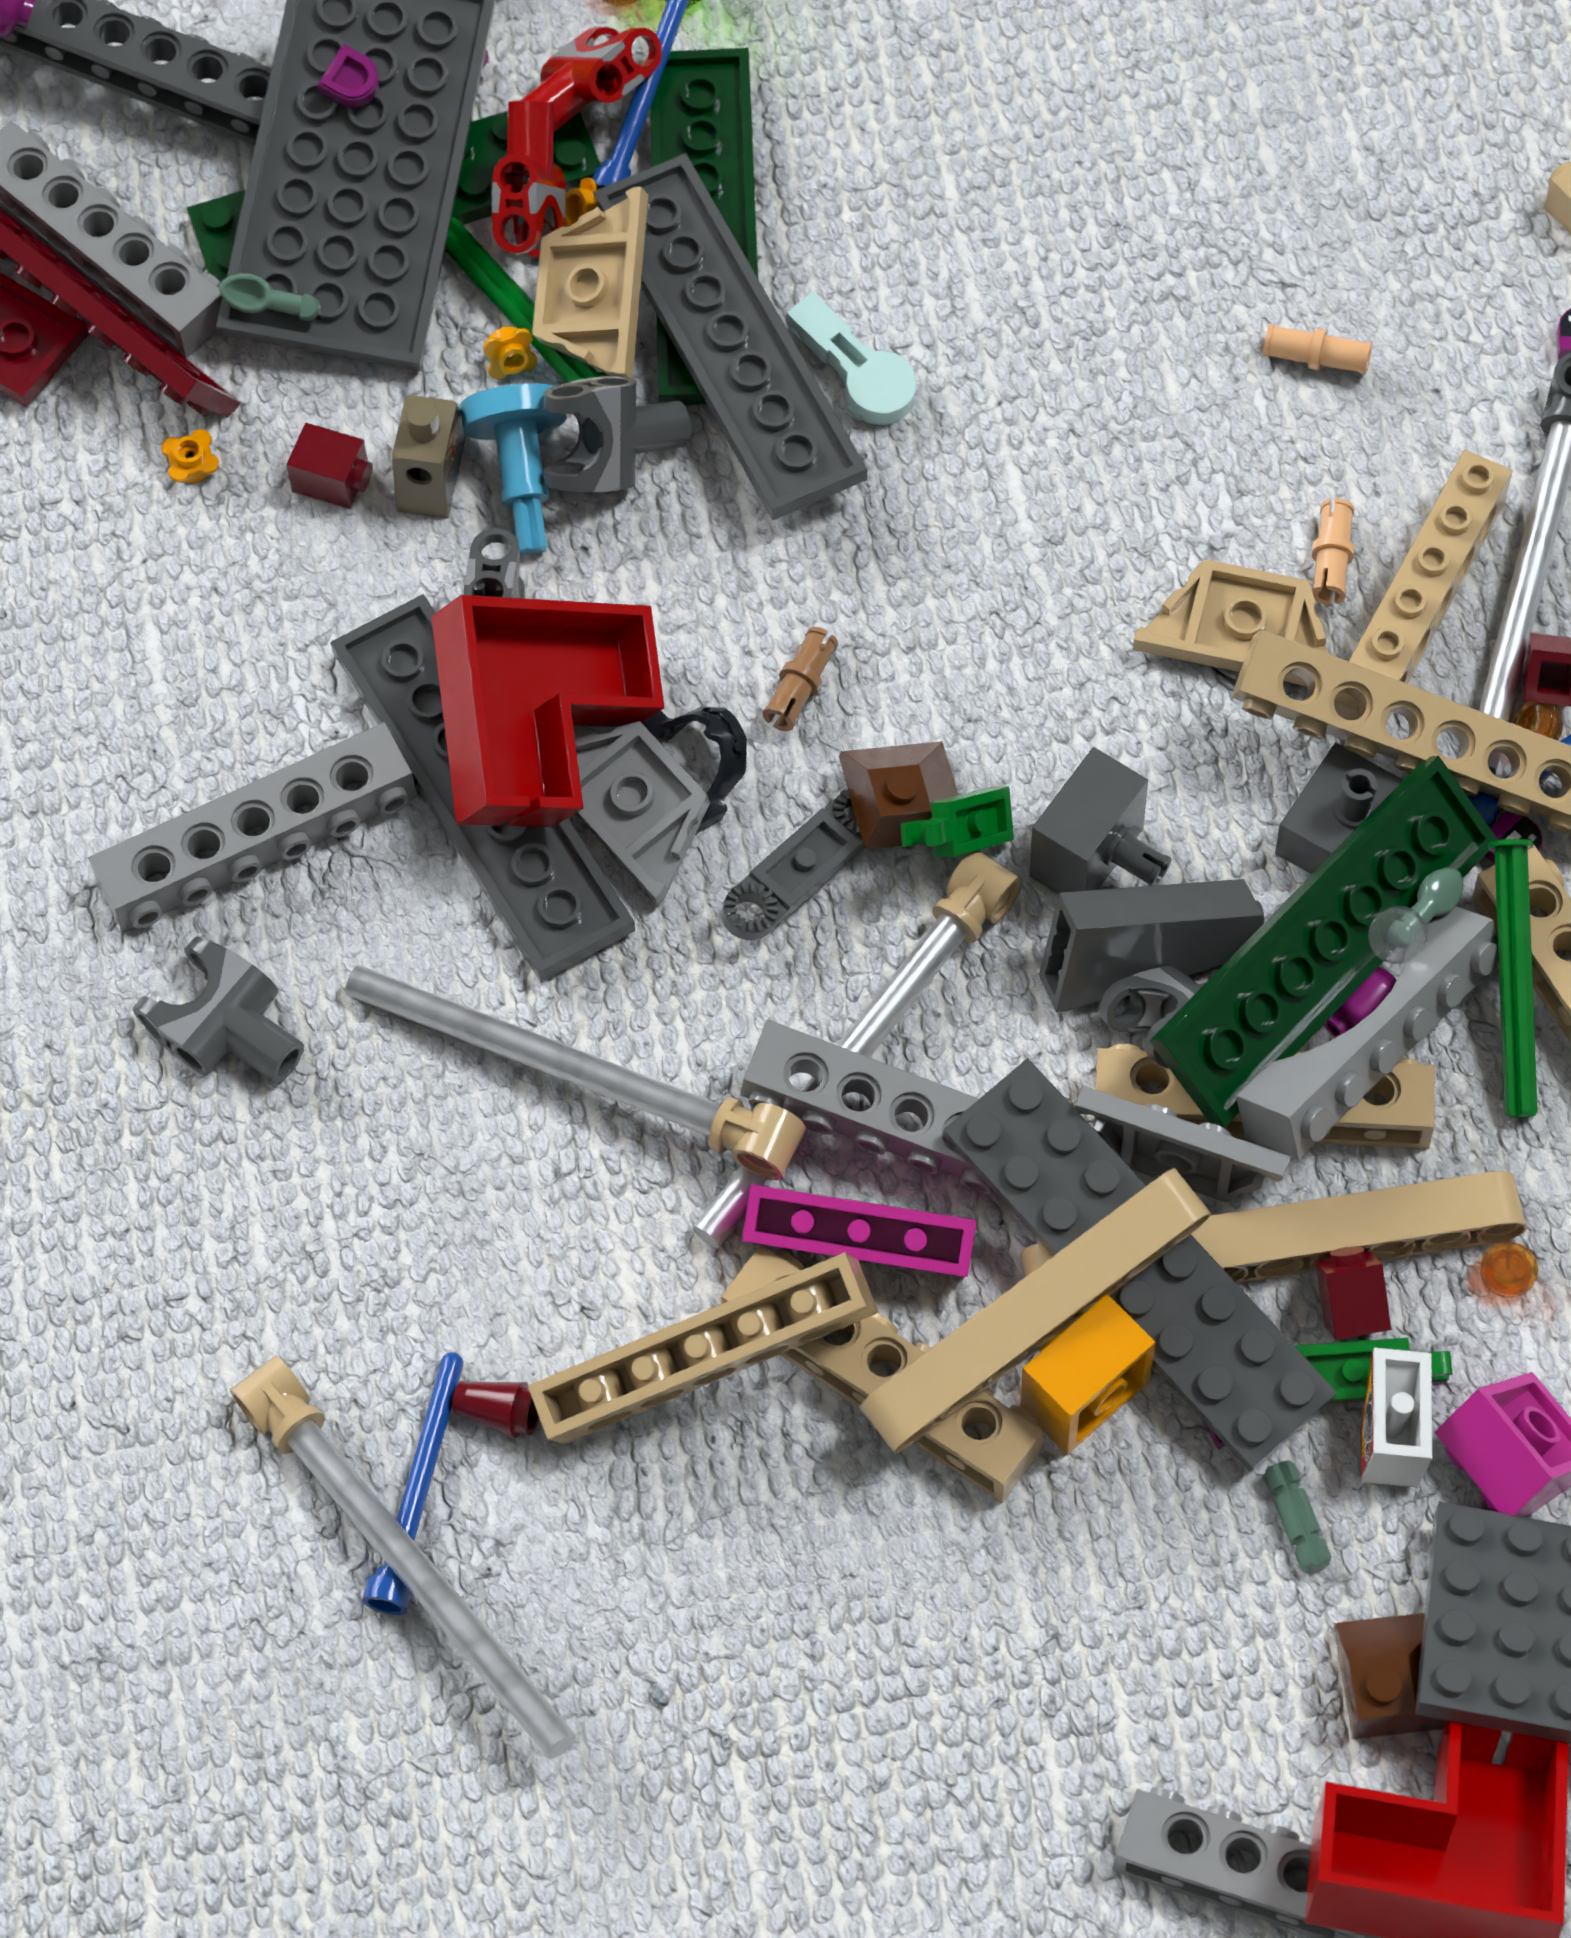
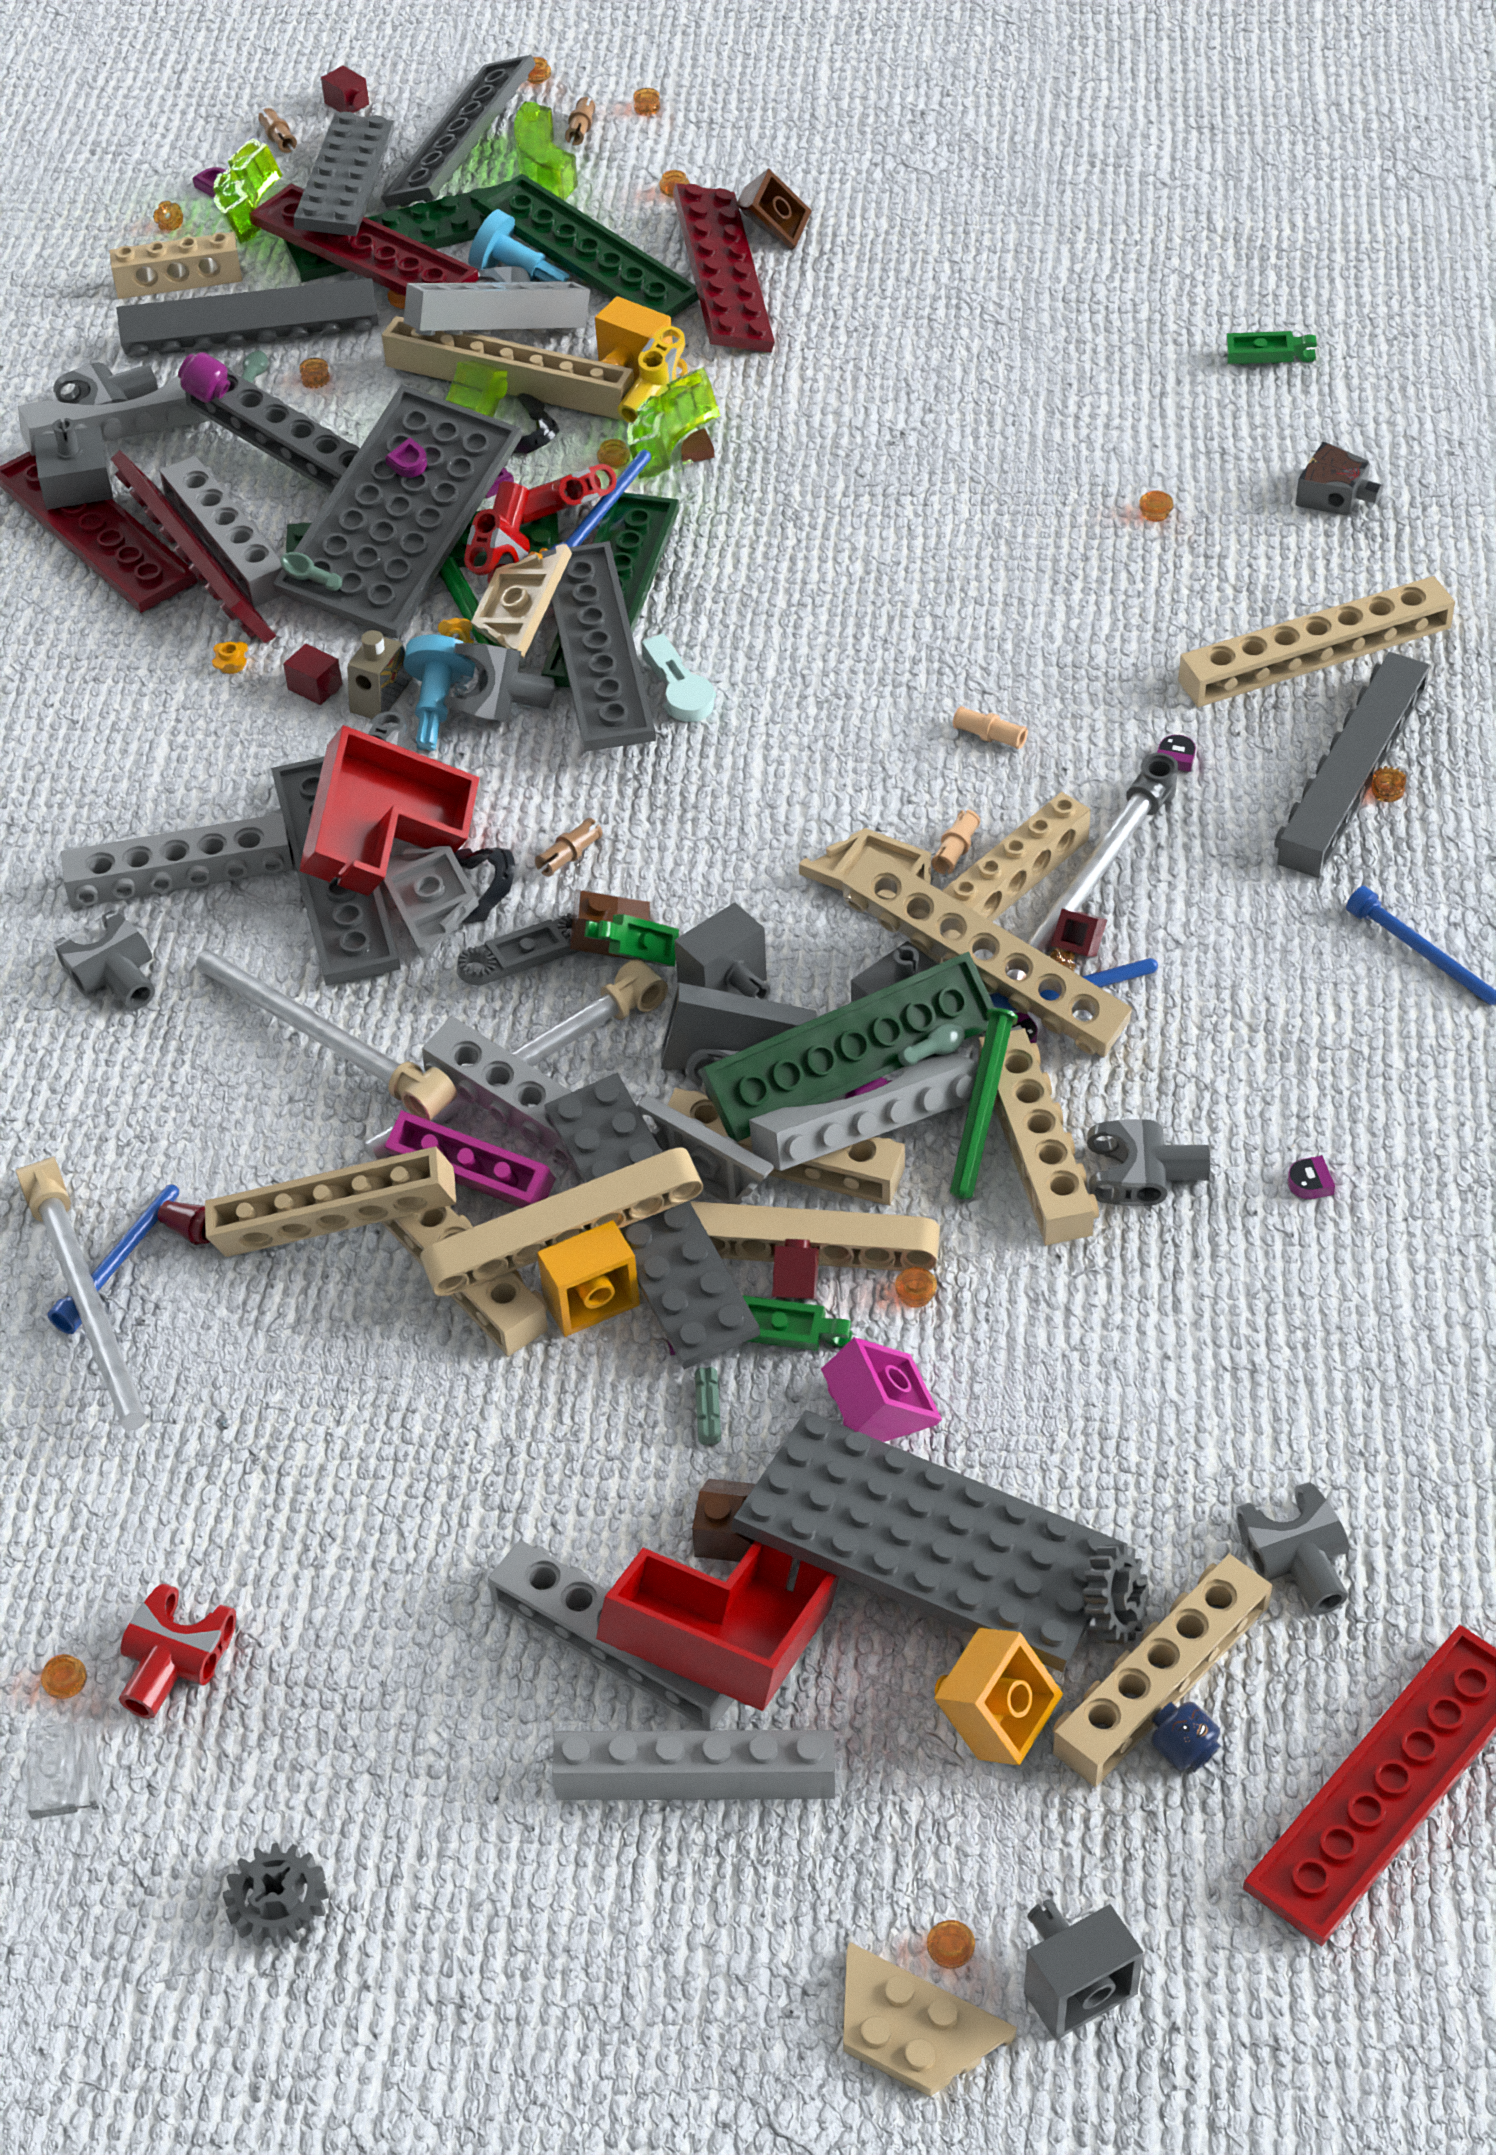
camera: 15 degrees right, 15 degrees down
(1397, 935) = (901, 1051): clear tile -> none
(1397, 1418) = (795, 1353): white slope -> none

